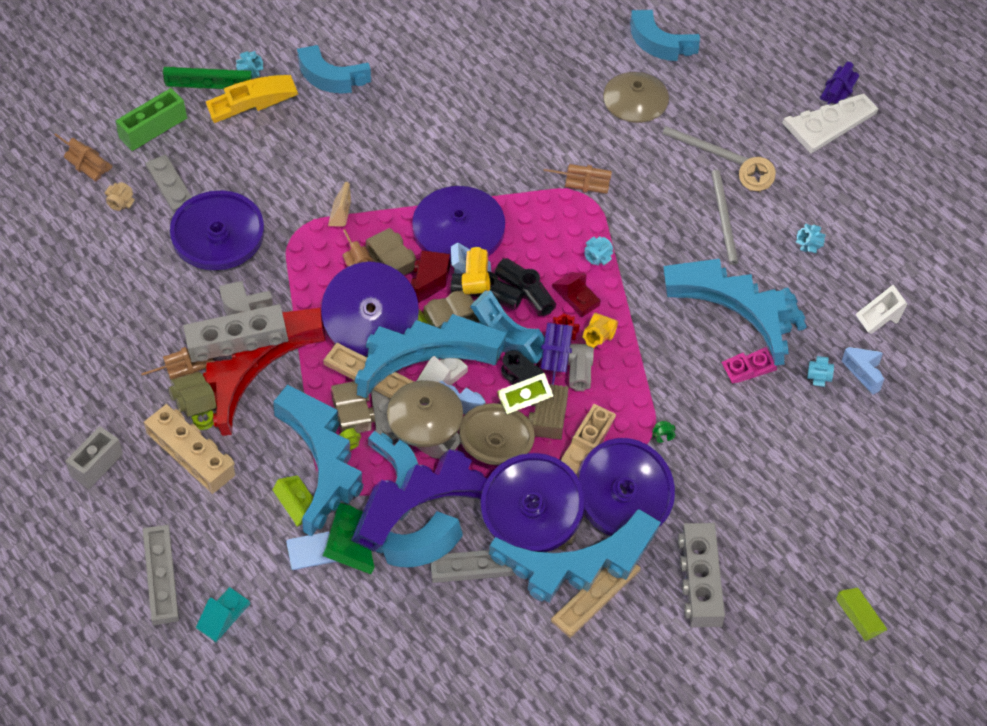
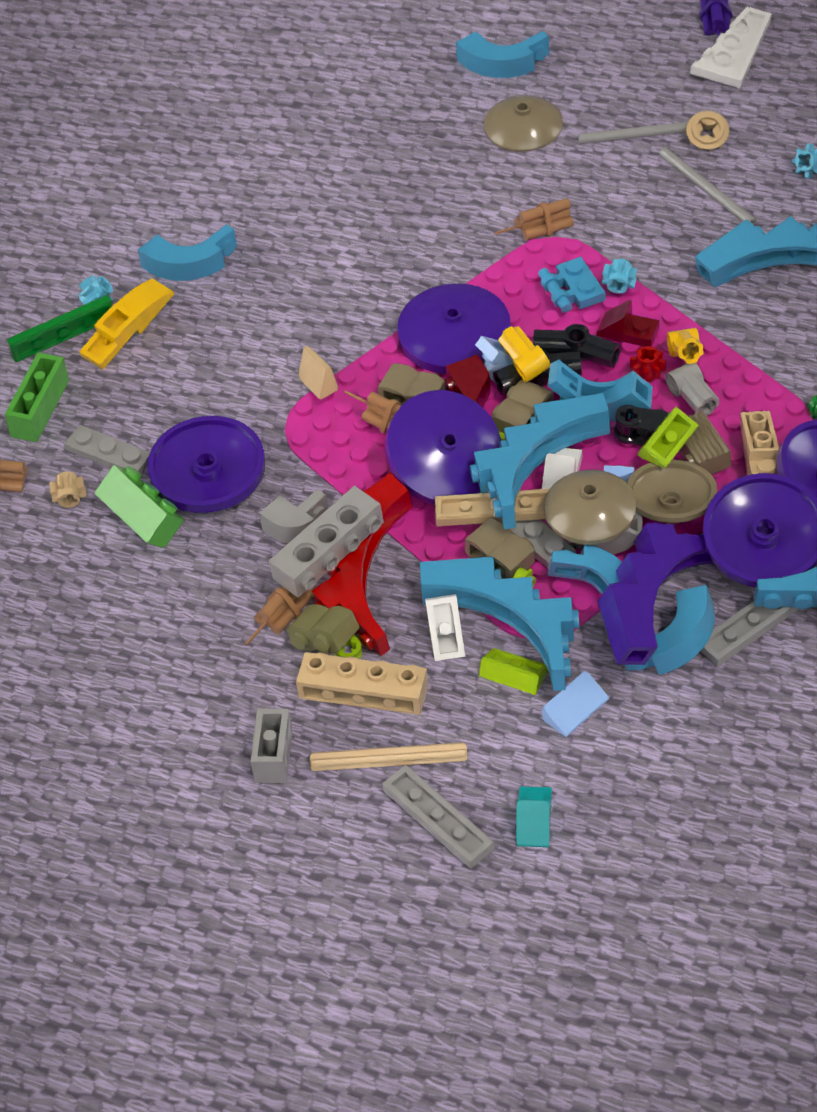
camera: 25 degrees left, 5 degrees down
(151, 235) = (139, 505): none -> brick
(166, 511) = (388, 756): none -> tan axle
(272, 441) = (445, 627): none -> white slope
(339, 543) = (603, 673): green wing -> none
(556, 348) = (663, 380): dark purple piece -> none
(571, 238) = (578, 280): none -> dark azure plate

